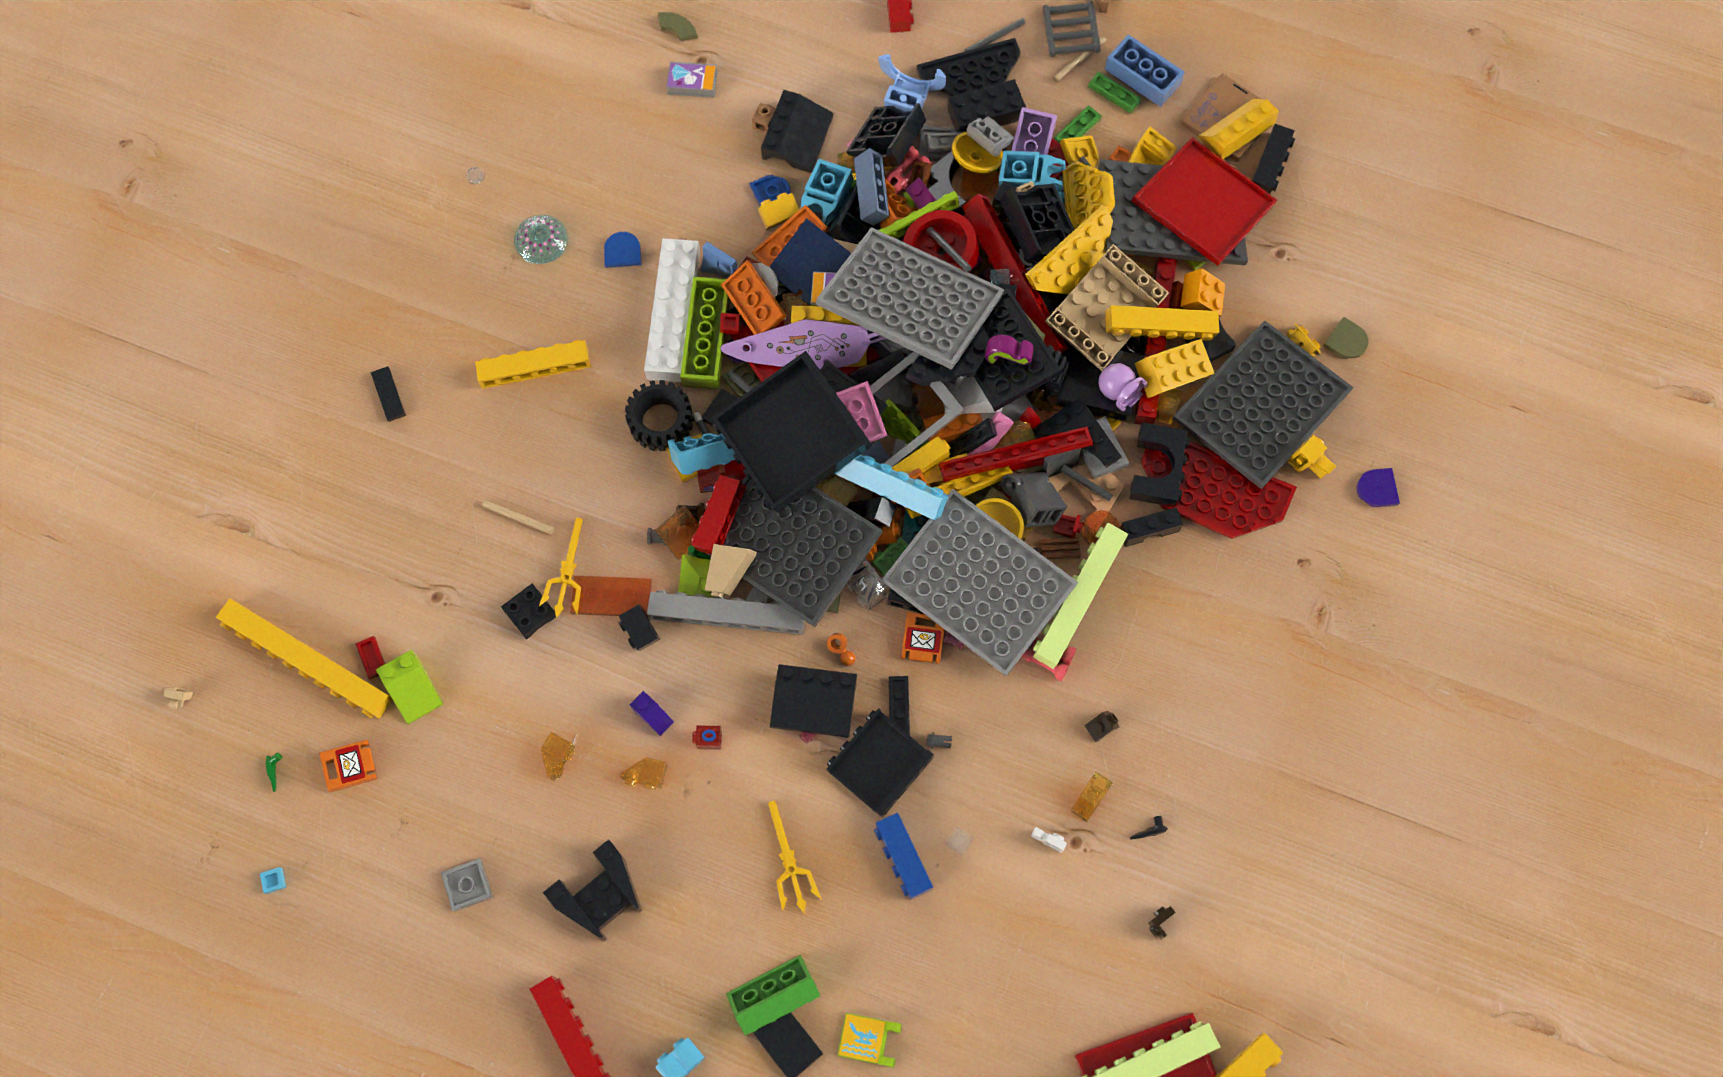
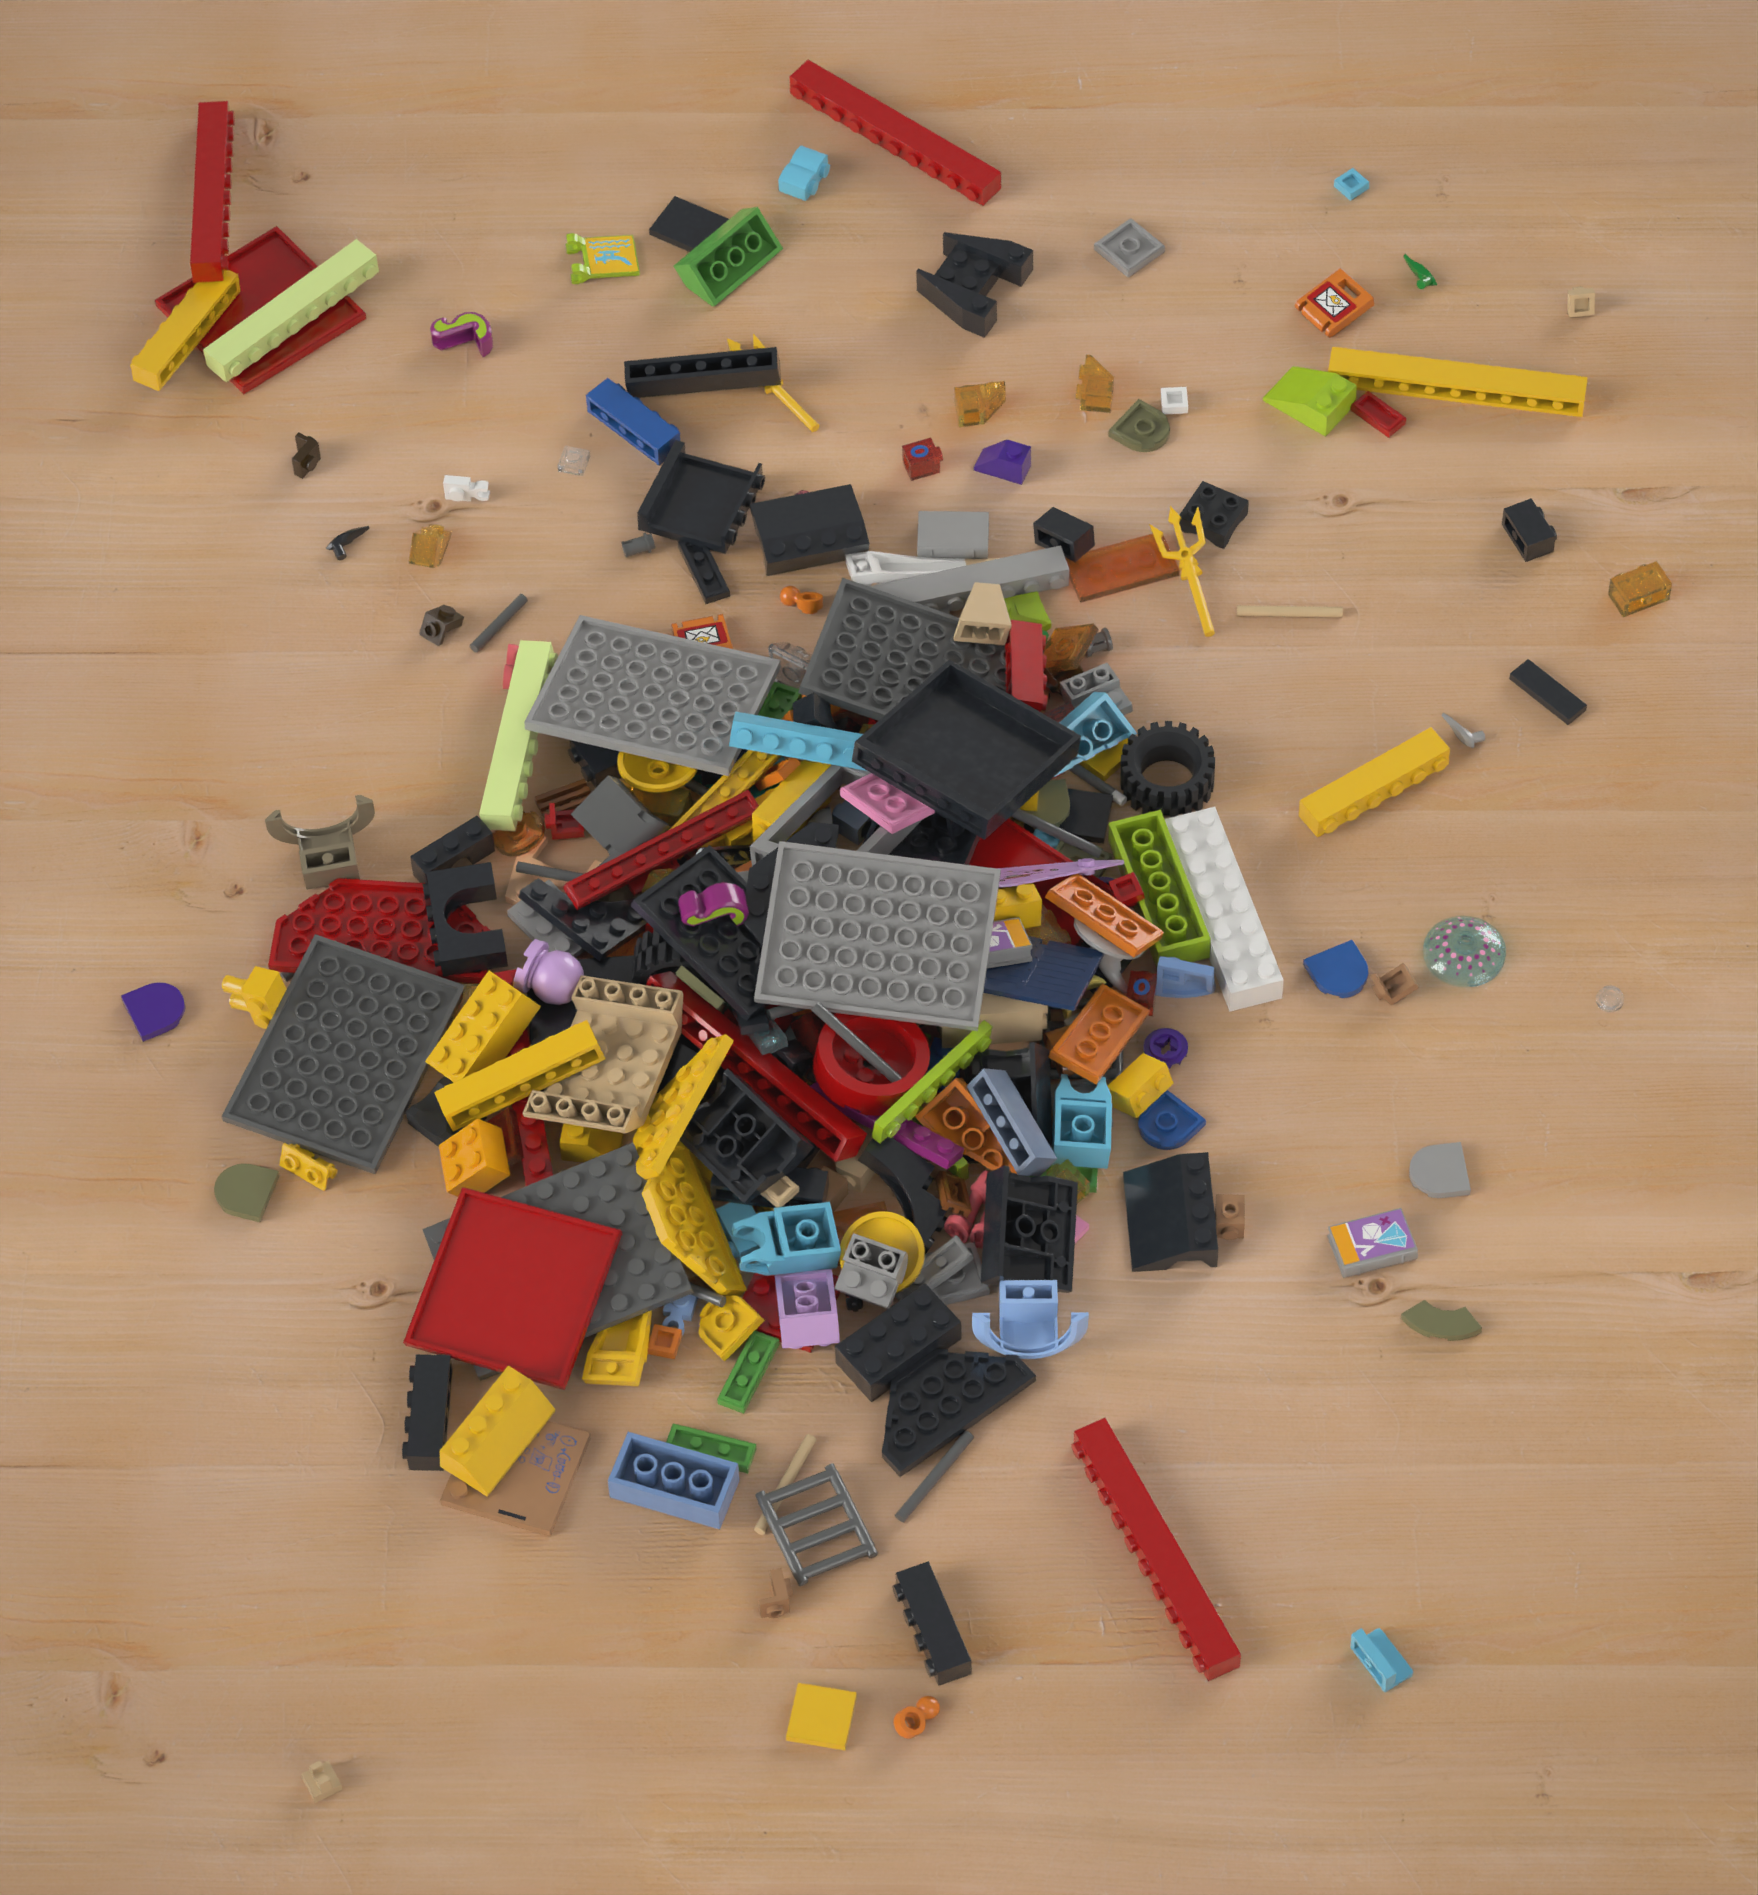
camera: 160 degrees right, 15 degrees down
(285, 443) = (1639, 588): none -> clear yellow brick
(327, 515) = (1529, 529): none -> black brick
(457, 377) = (1463, 734): none -> light grey bar
(506, 721) = (1174, 400): none -> white plate
(539, 710) = (1141, 428): none -> olive tile
(595, 225) = (1394, 984): none -> medium nougat bracket
(630, 109) = (1440, 1171): none -> light grey tile
(678, 488) = (1095, 680): none -> light grey brick
(714, 663) = (953, 534): none -> light grey piece
(750, 229) = (1159, 1039): none -> dark purple gear
(761, 644) = (885, 567): none -> white plate
(838, 872) = (703, 372): none -> black brick
(1003, 1003) = (462, 329): none -> magenta animal
(1060, 713) = (498, 623): none -> dark grey bar
(1236, 558) = (325, 851): none -> dark tan piece

